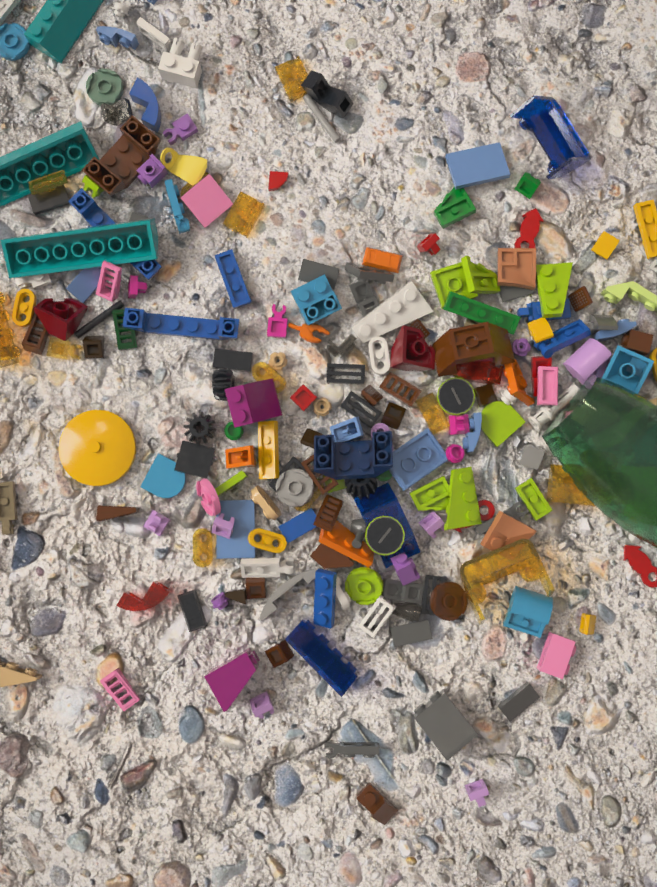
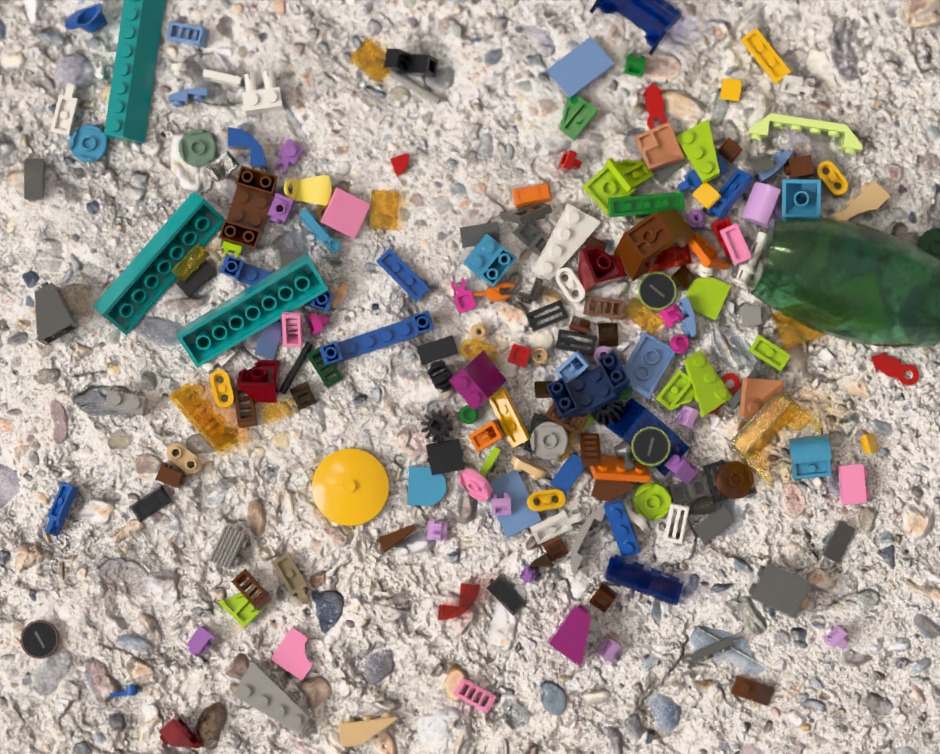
camera: 25 degrees left, 0 degrees up
(202, 547) = (490, 533): clear yellow plate -> none

